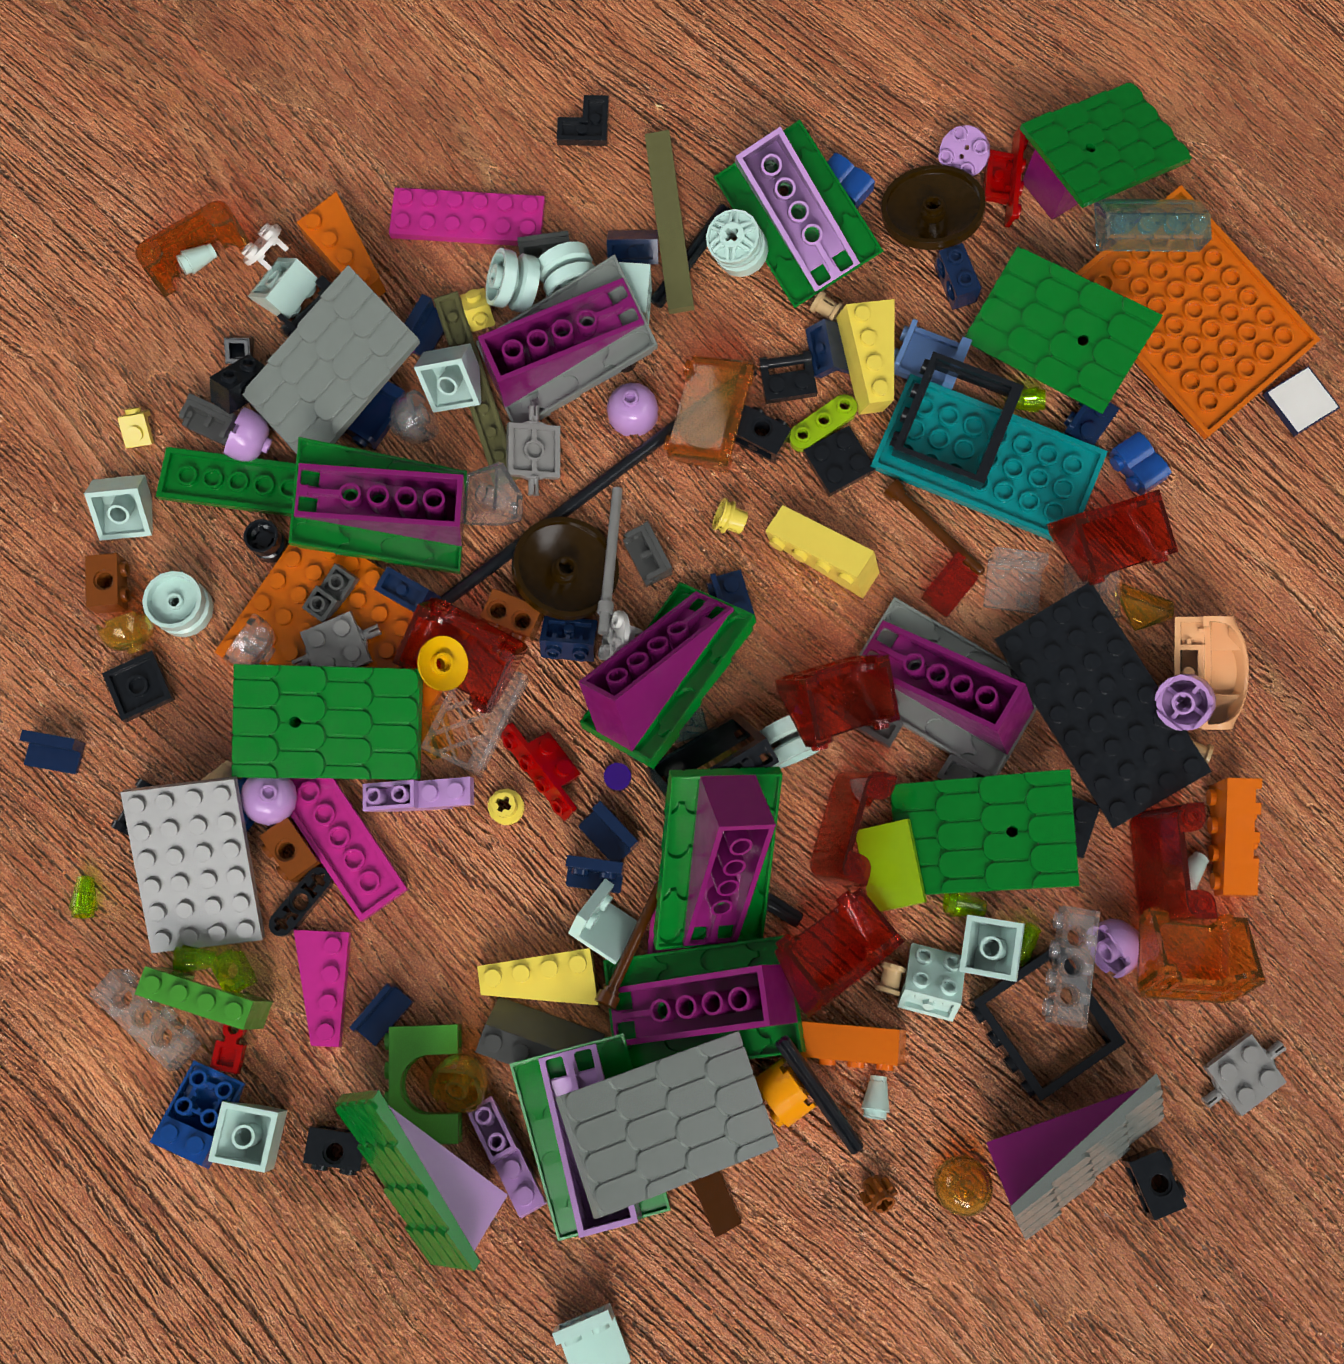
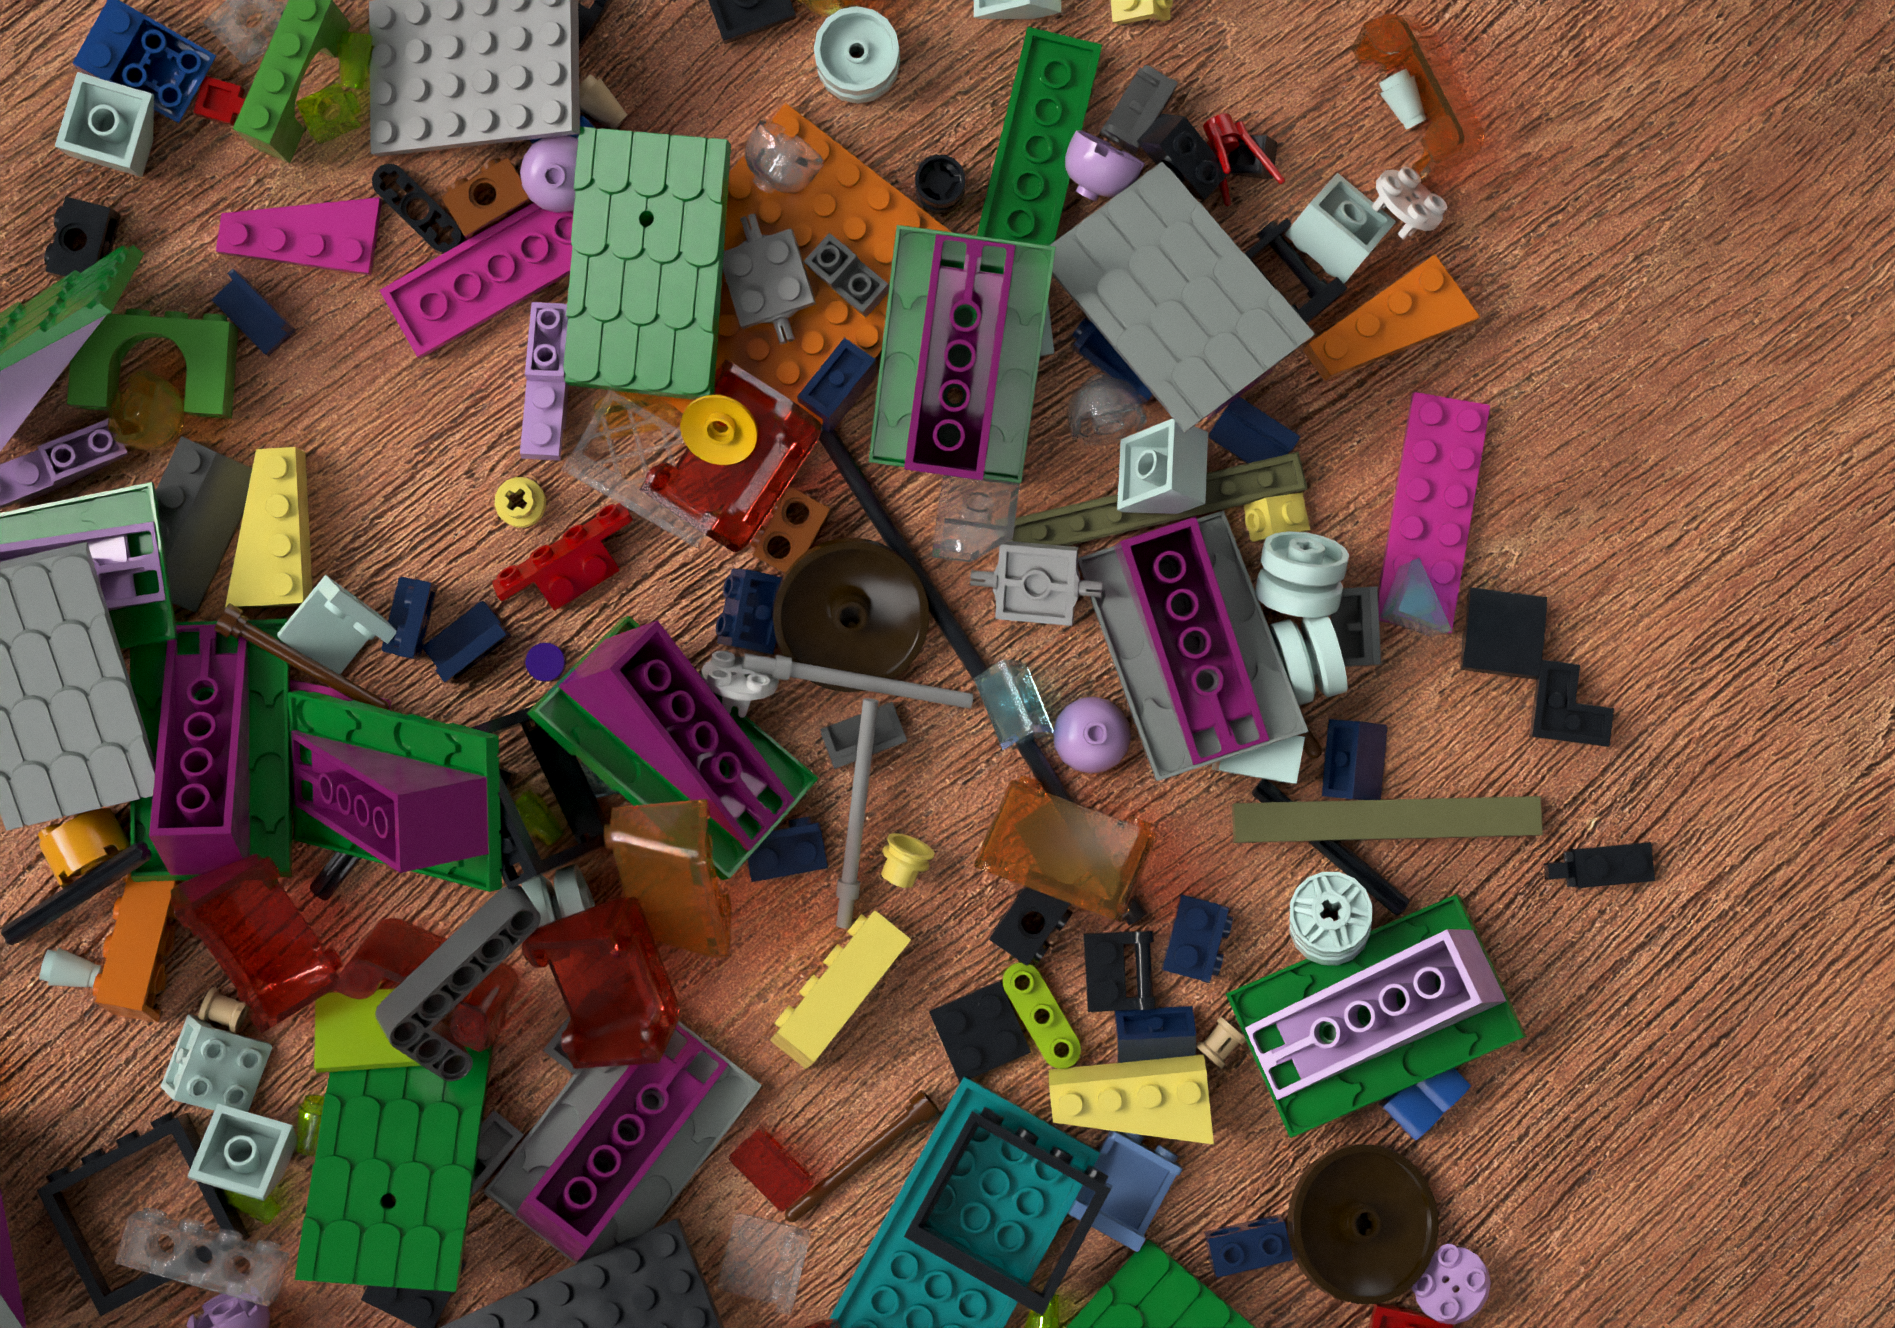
camera: 85 degrees right, 10 degrees up
(223, 360) = (1223, 139): none -> red plant
(523, 207) = (1414, 602): none -> clear light blue slope
(542, 165) = (1504, 633): none -> black slope
(616, 457) = (1013, 703): none -> clear light blue slope
(685, 94) = (1604, 865): none -> black hinge
(751, 554) = (848, 886): none -> light grey bar
(752, 653) = (672, 873): none -> clear orange windscreen
(760, 329) = (1196, 938): none -> dark blue bracket
(845, 797) = (414, 1009): none -> dark grey beam

